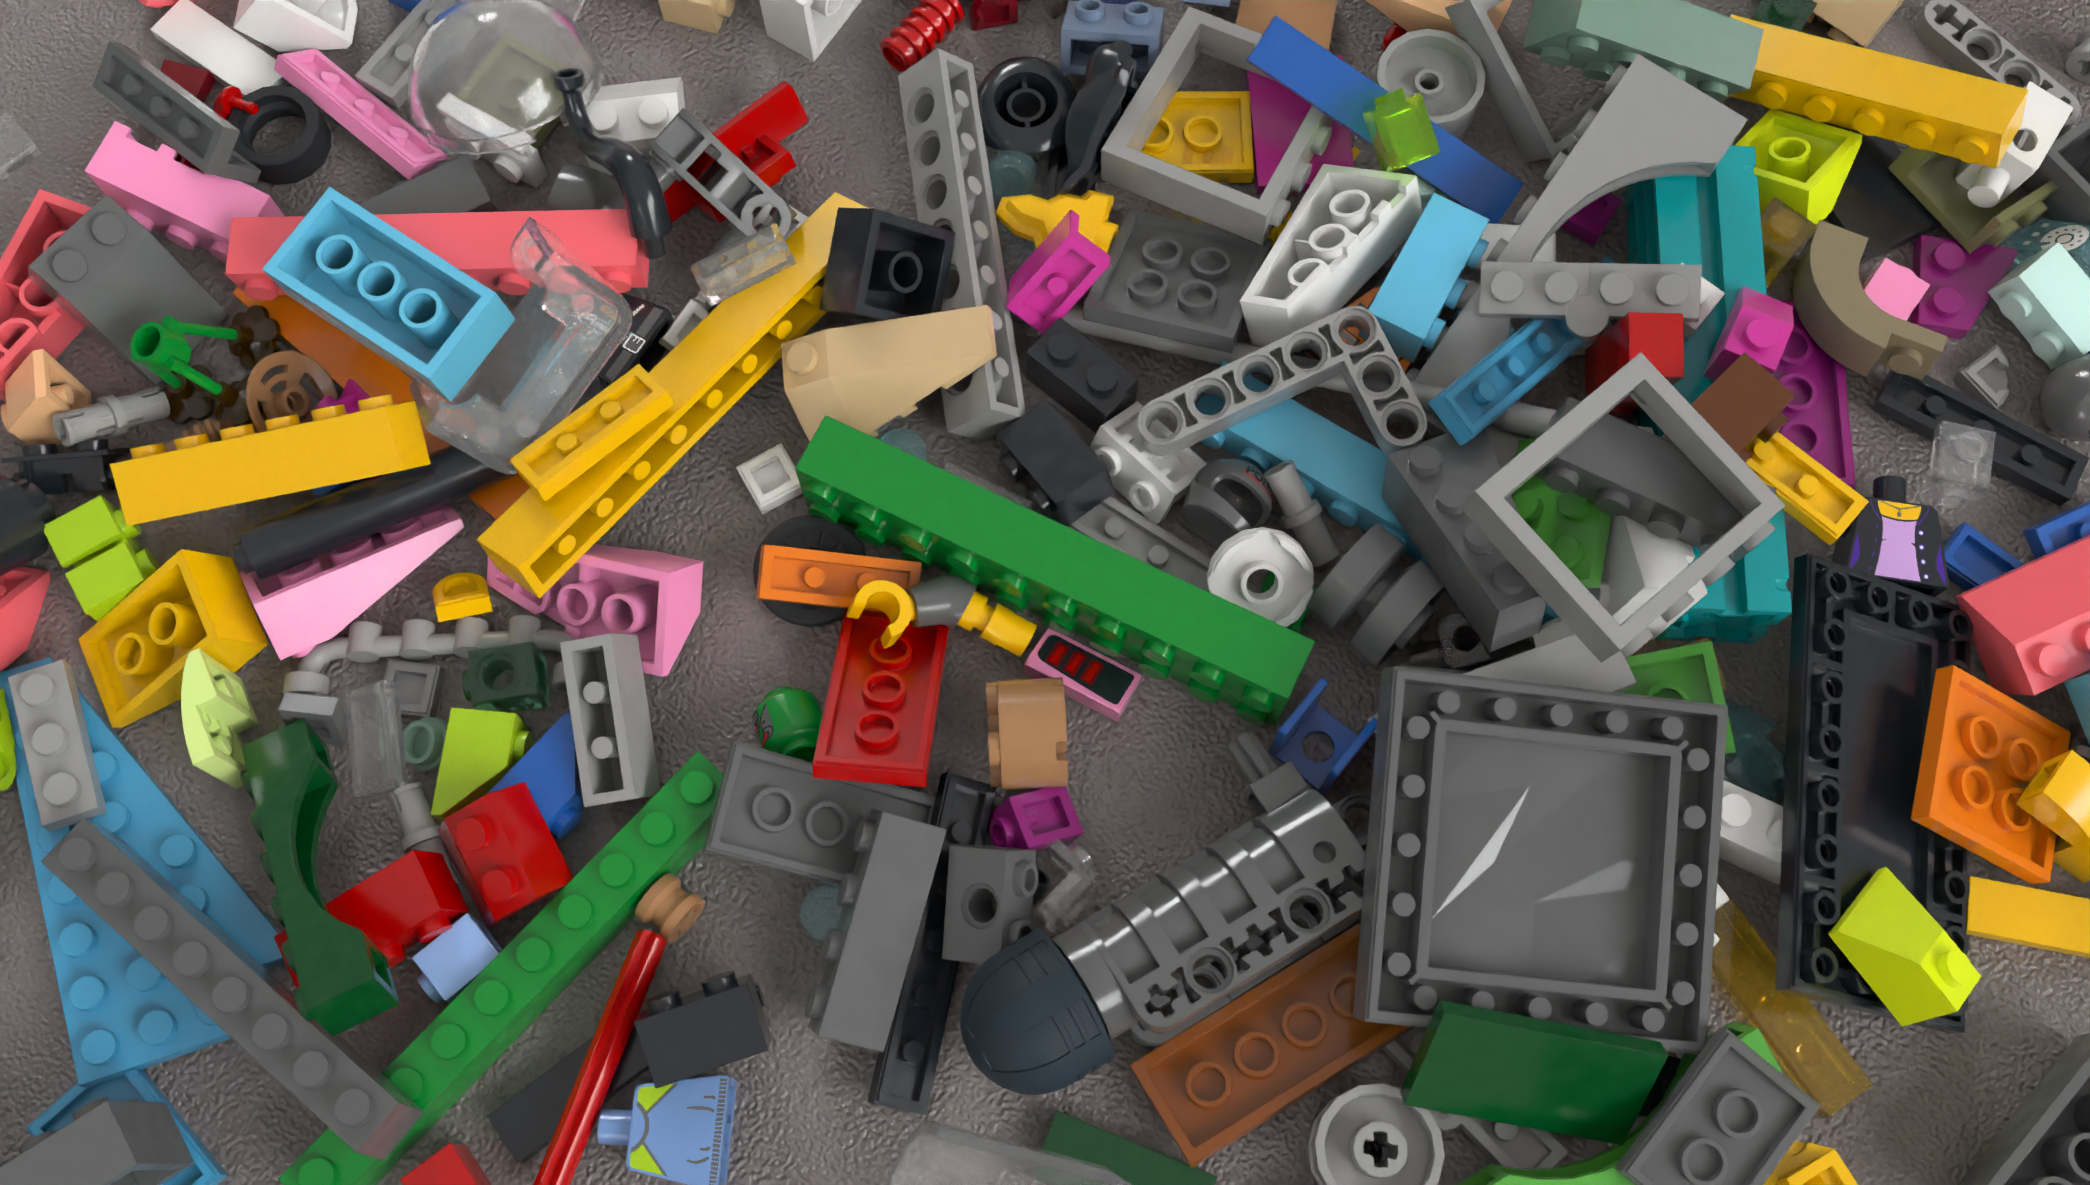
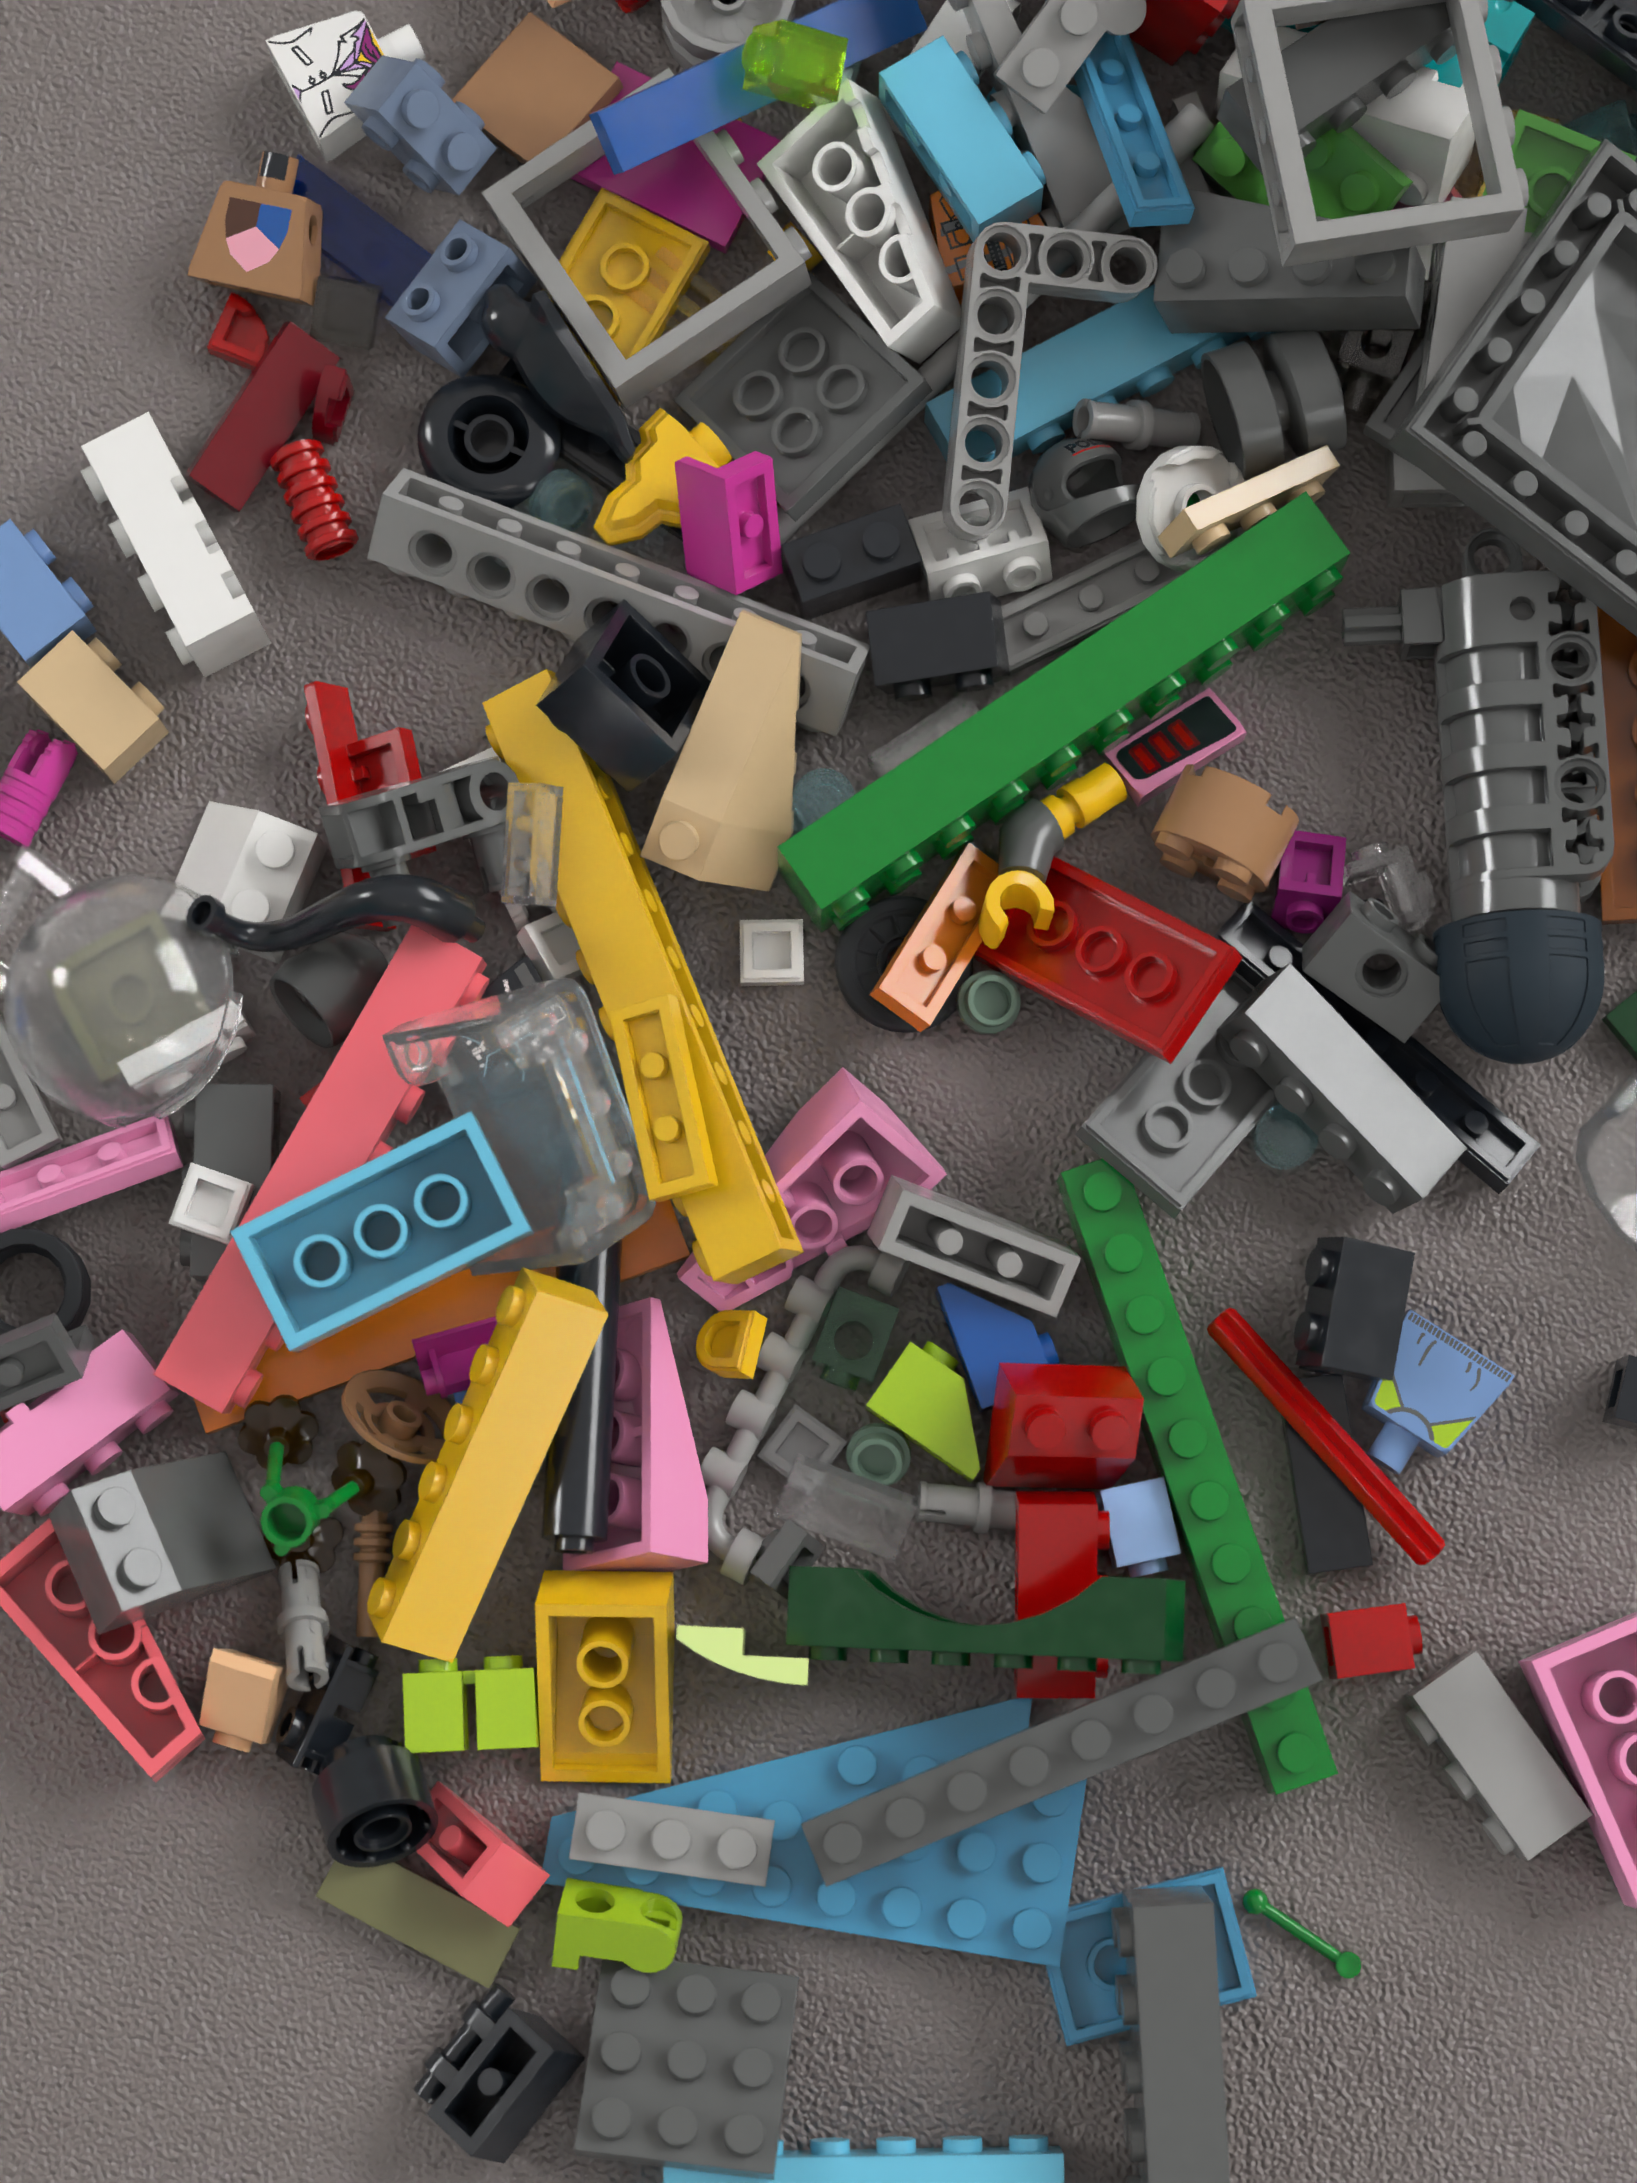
camera: 60 degrees left, 10 degrees up
(383, 194) = (211, 1203): none -> white tile
(670, 907) = (1198, 1289): medium nougat wheel -> none
(788, 722) = (1072, 1070): green head -> none
(813, 642) = (988, 1002): none -> sand green plate
(1255, 589) = (1248, 503): none -> tan plate
(1310, 719) = (1412, 532): blue piece -> none

